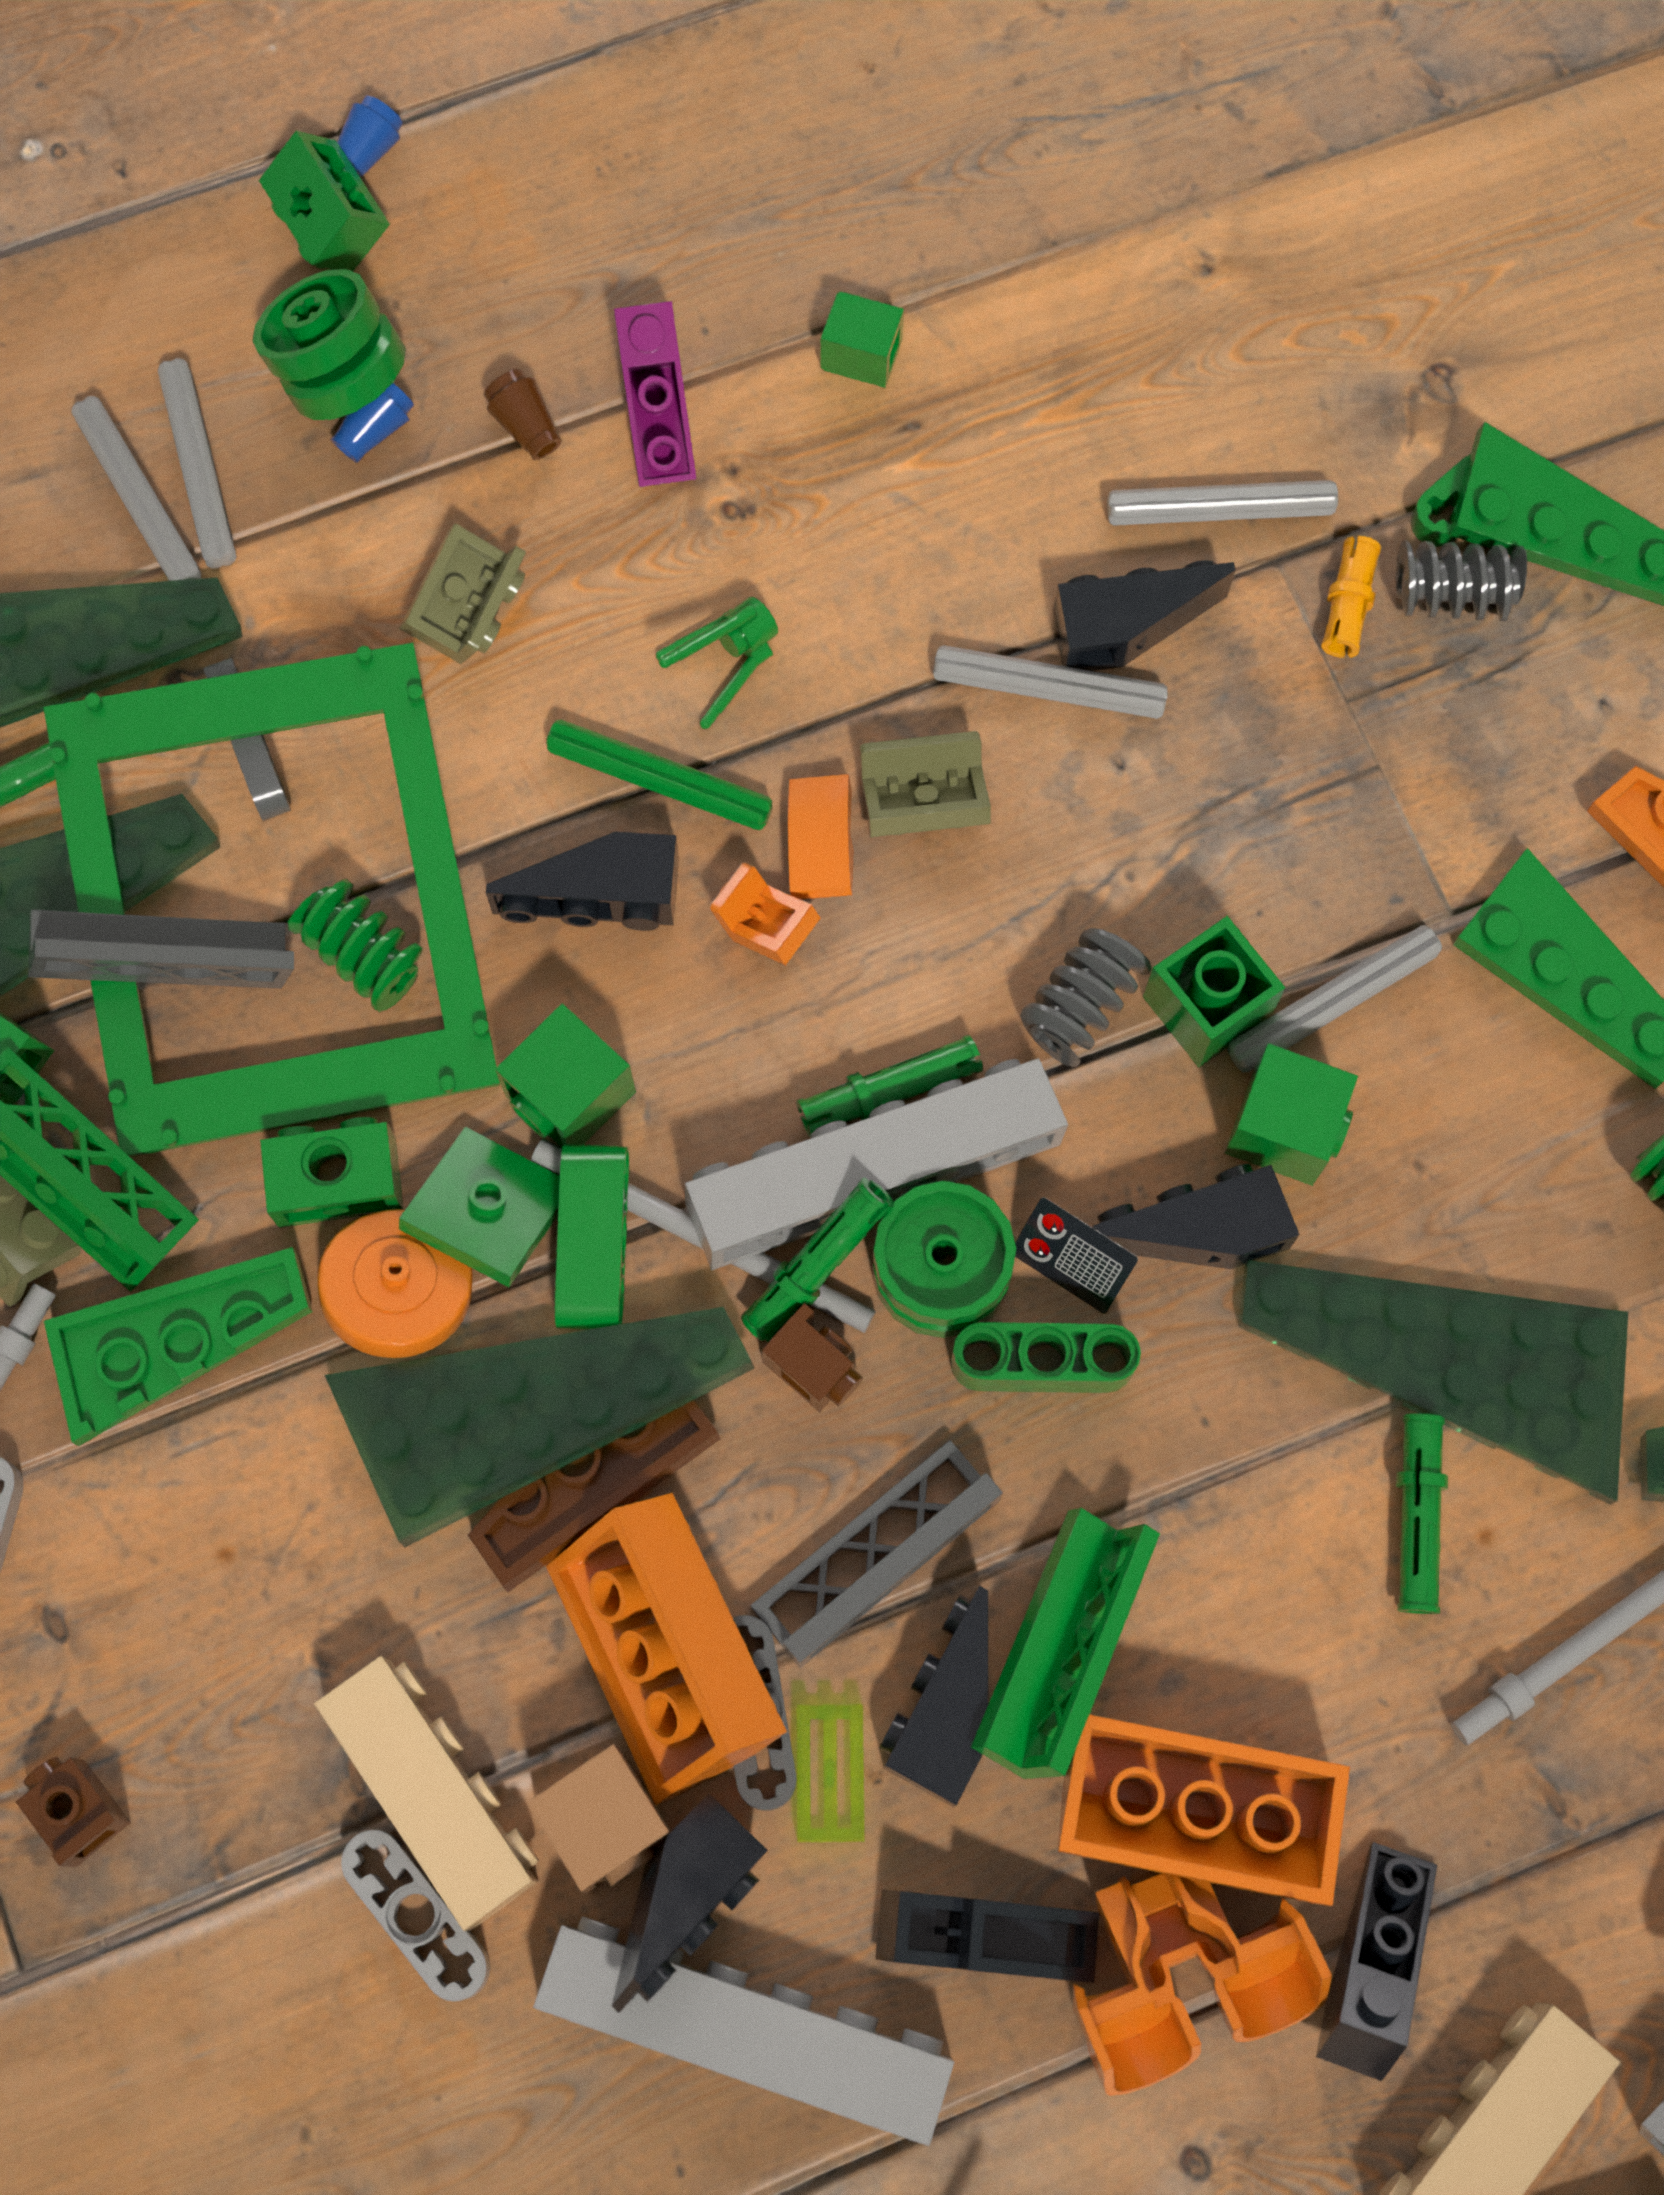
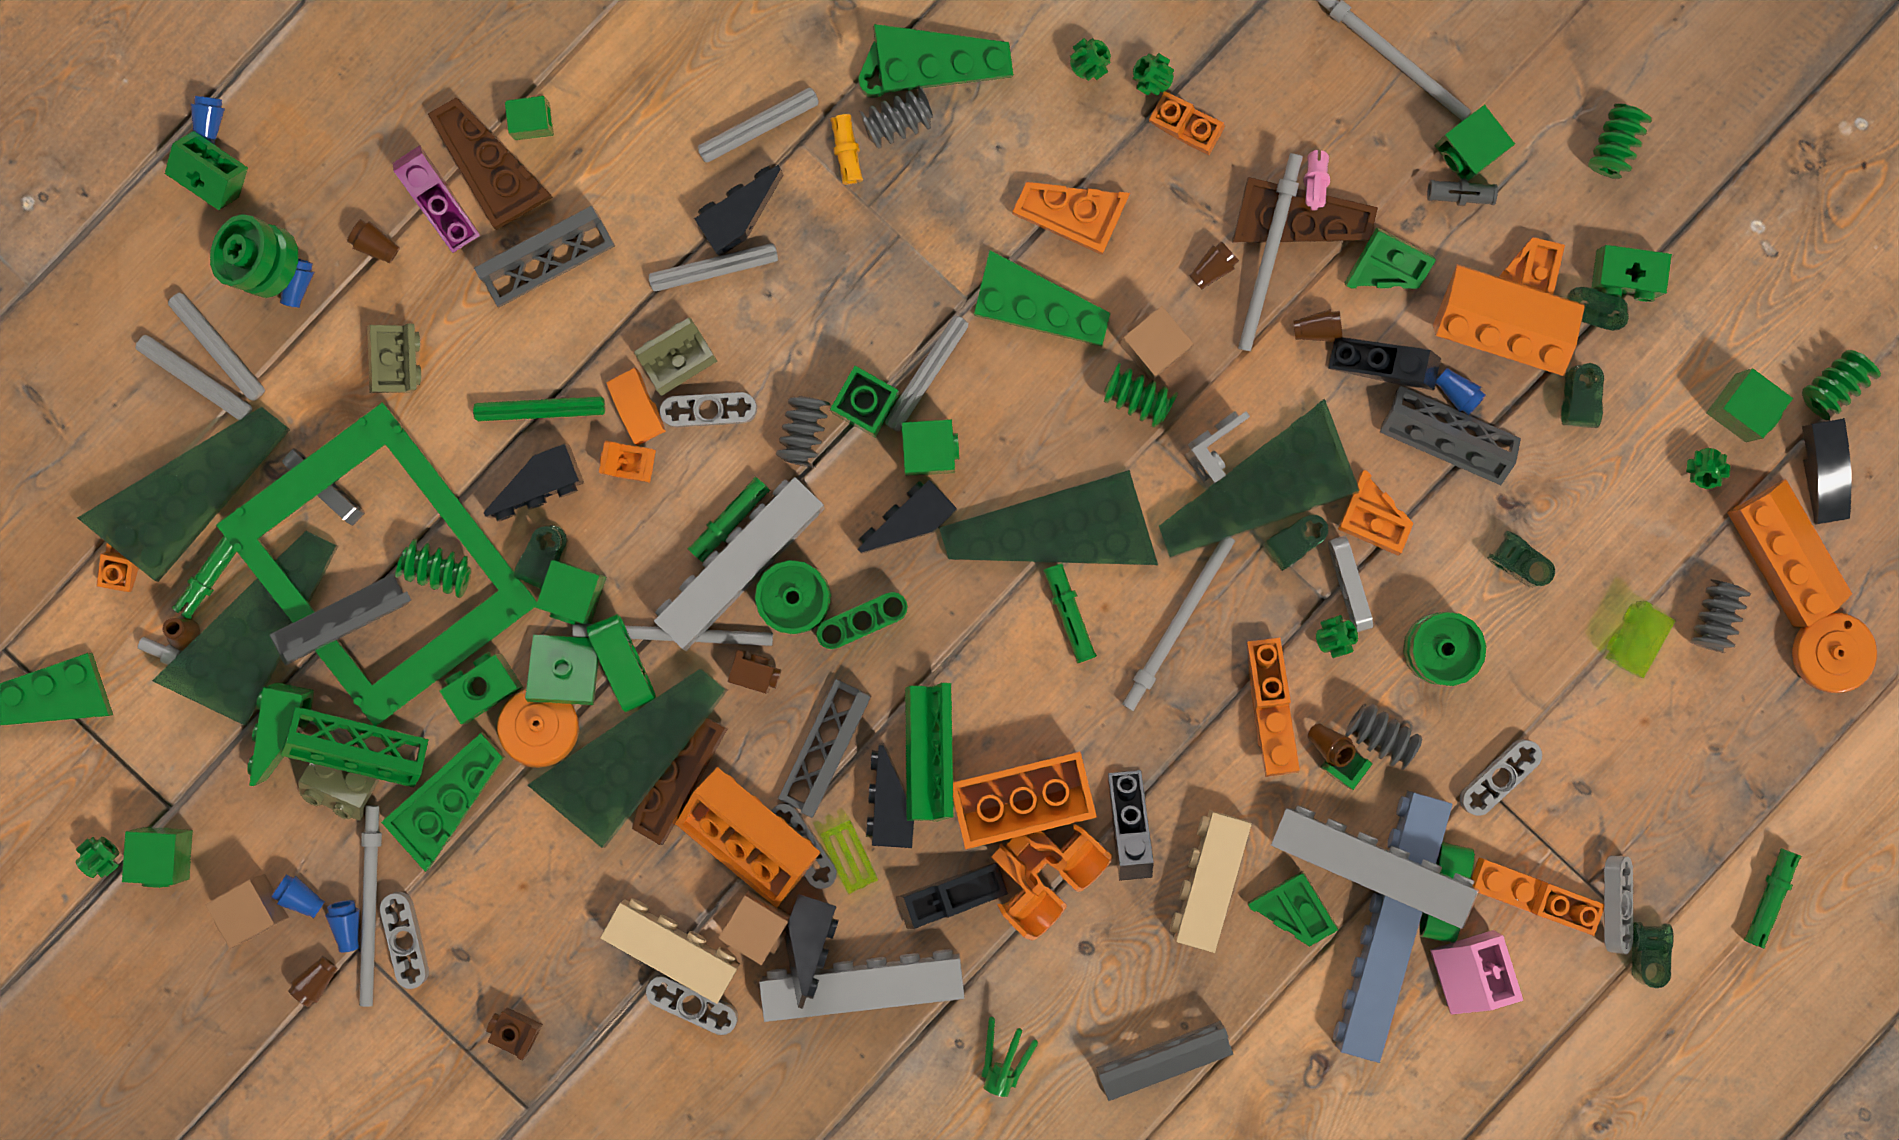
camera: 25 degrees left, 15 degrees up
(529, 1001) = (537, 557): none -> clear green piece
(740, 632) = (543, 312): green plant -> none
(763, 395) = (491, 171): none -> reddish brown wing
(779, 528) = (539, 245): none -> dark grey fence
(806, 1272) = (730, 638): green pin -> none
(985, 897) = (683, 403): none -> light grey beam
(1074, 1255) = (854, 564): black sticker -> none

